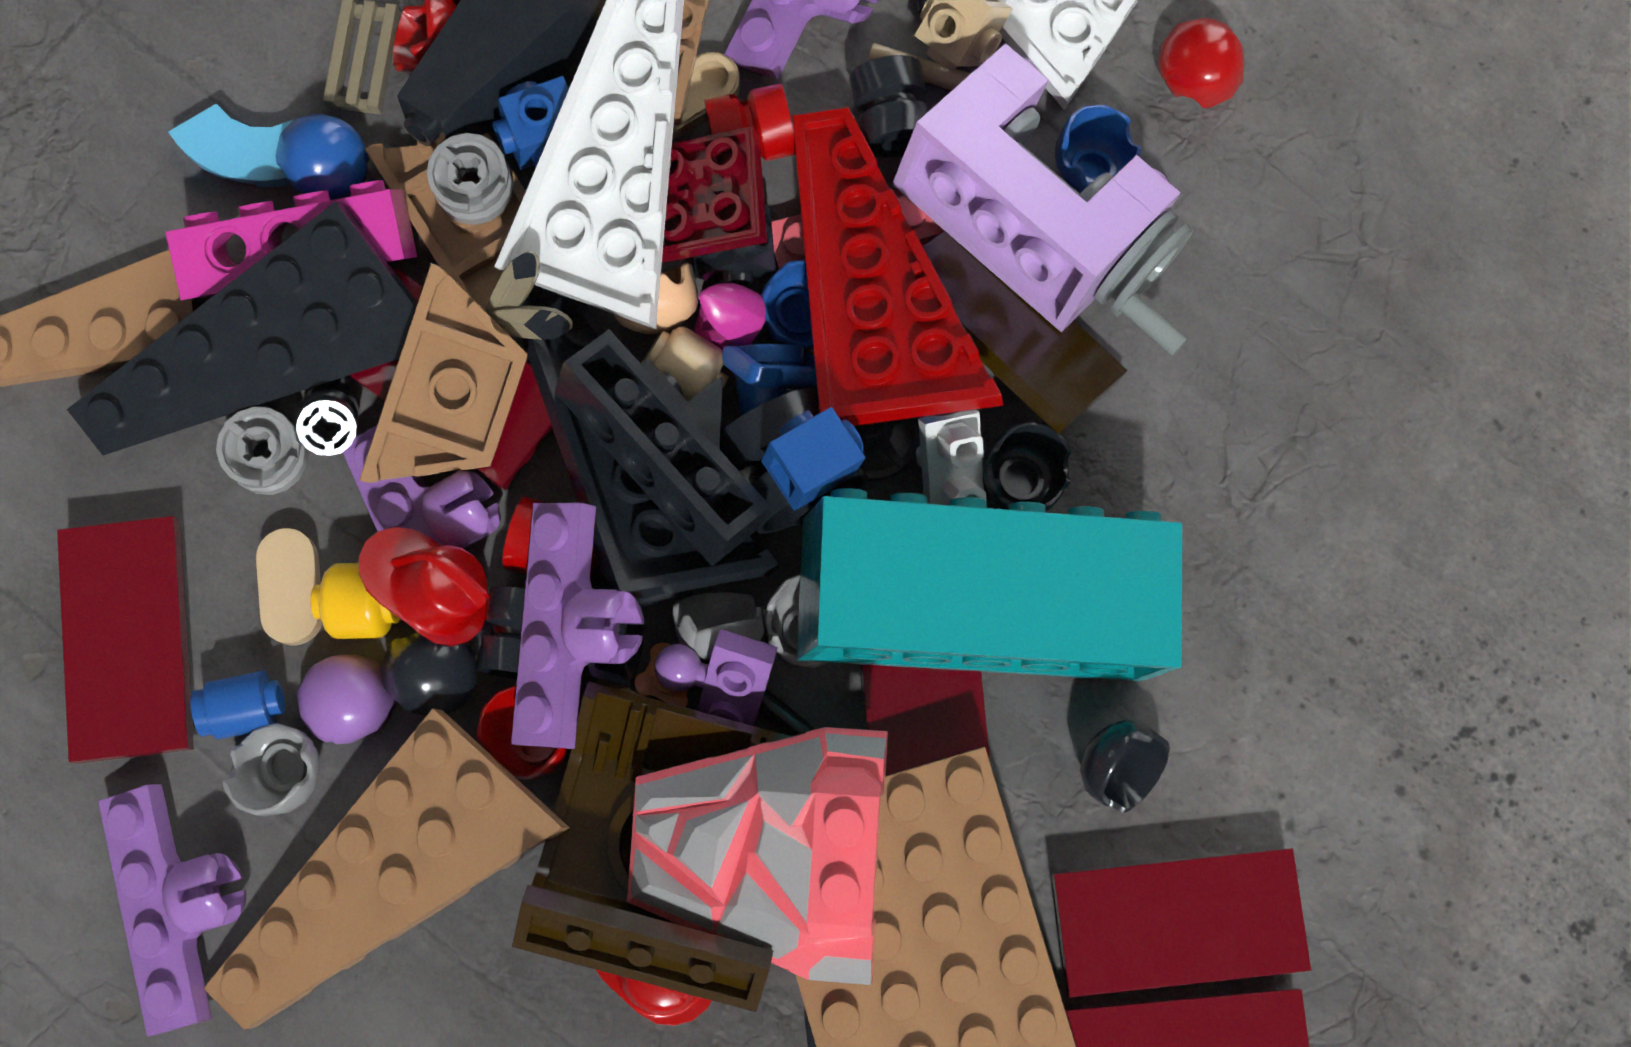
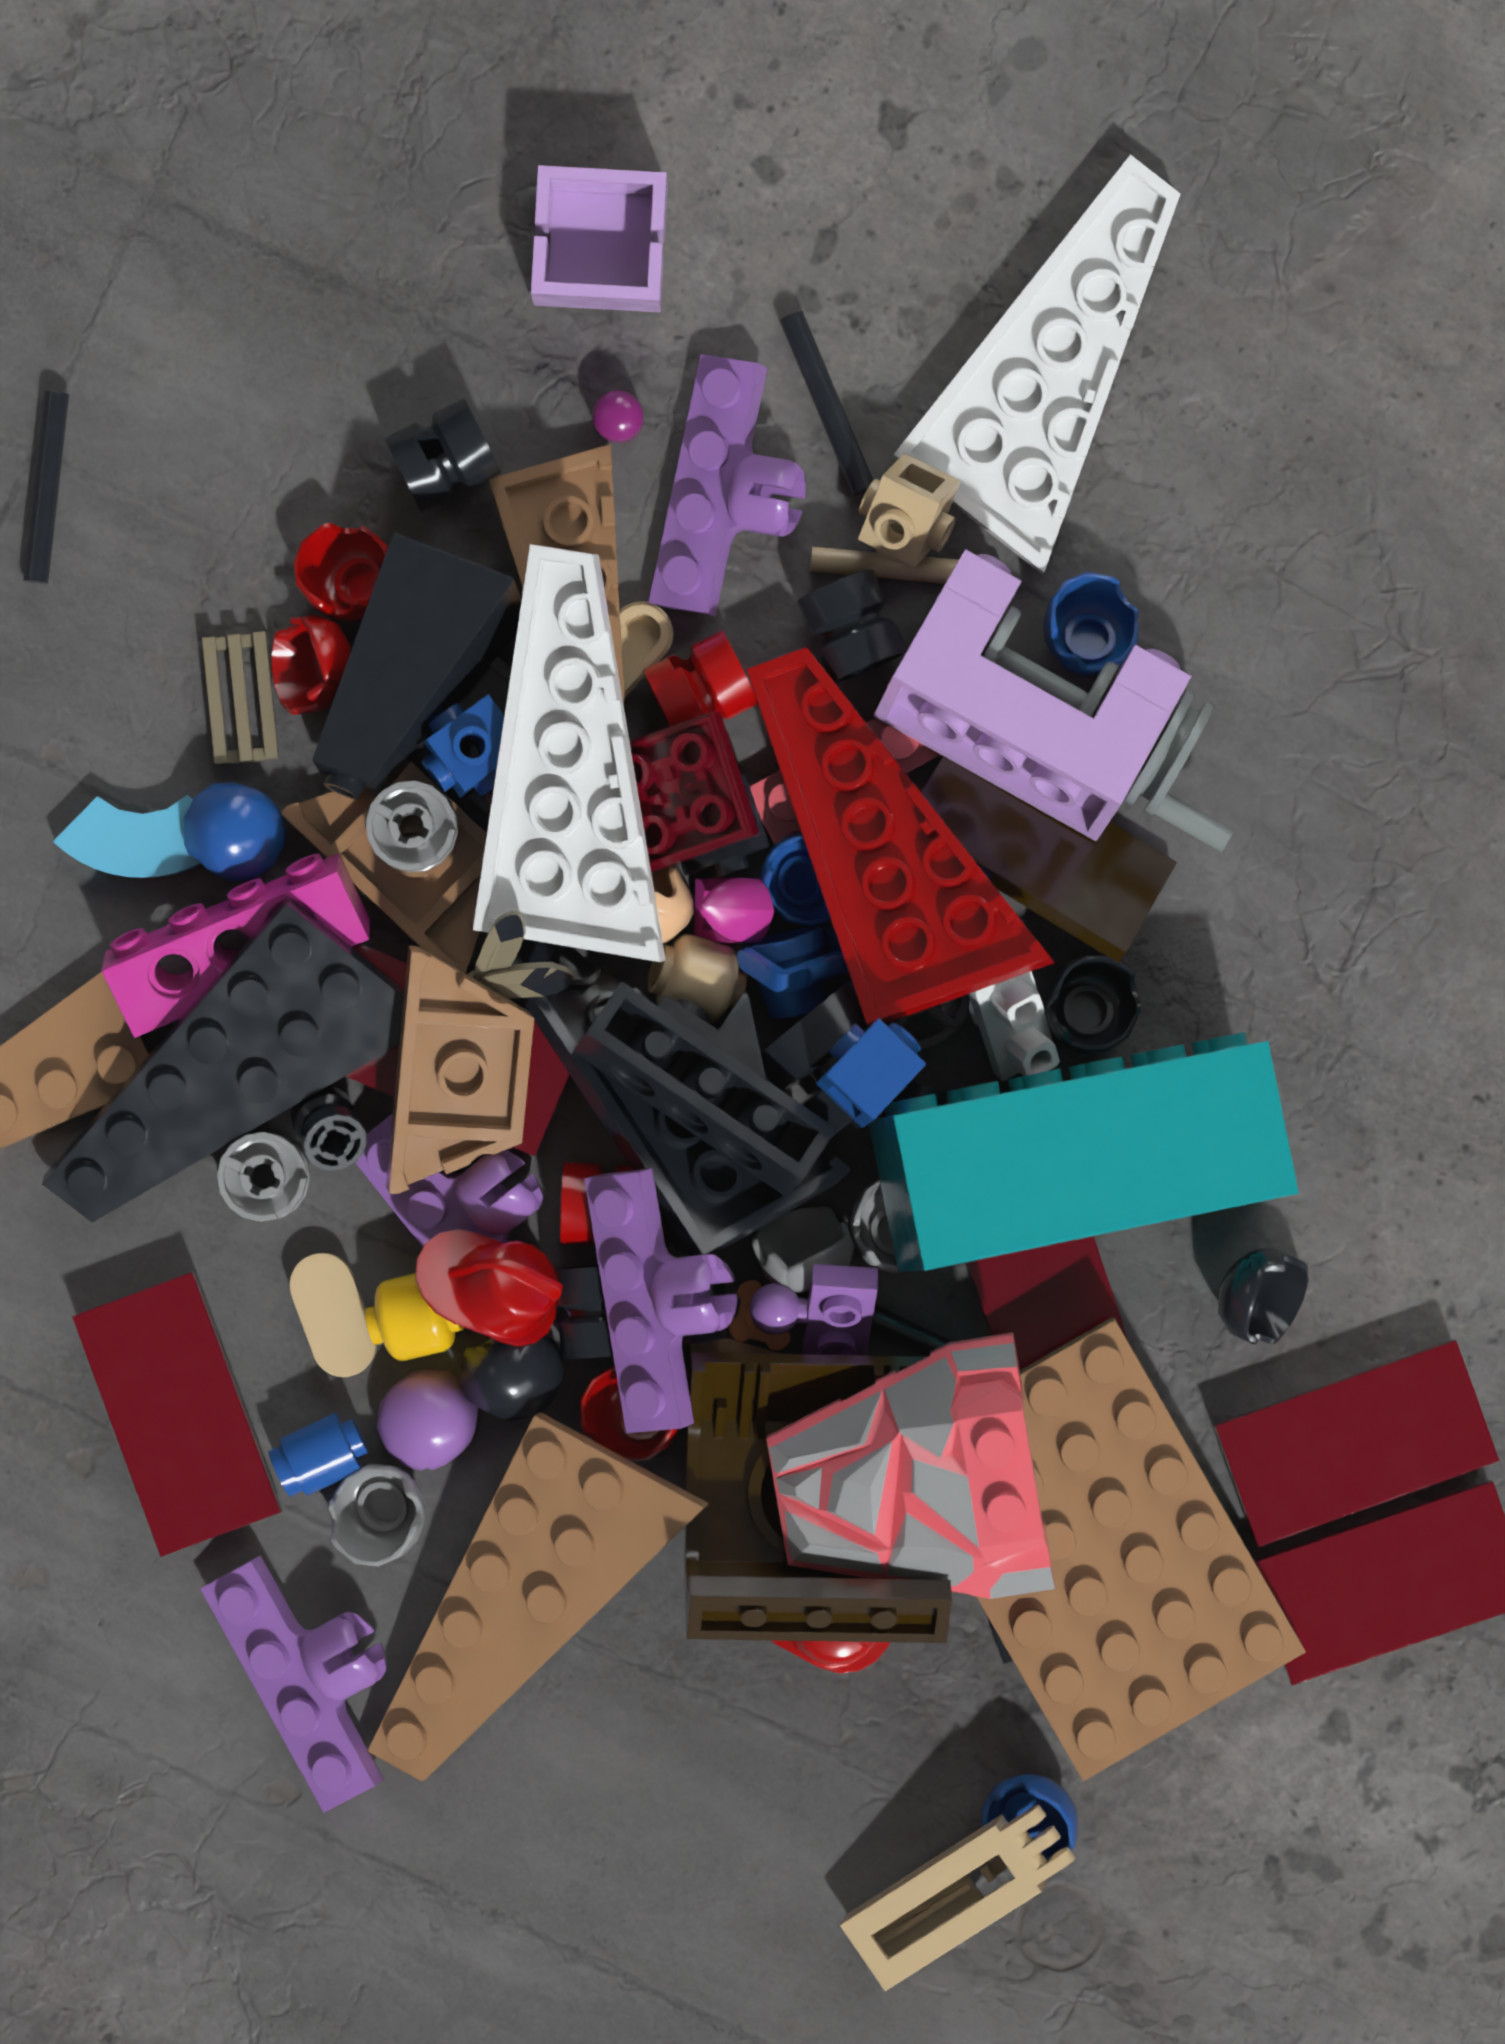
camera: 15 degrees left, 10 degrees up
(1202, 61) = (1184, 483): red hair -> none

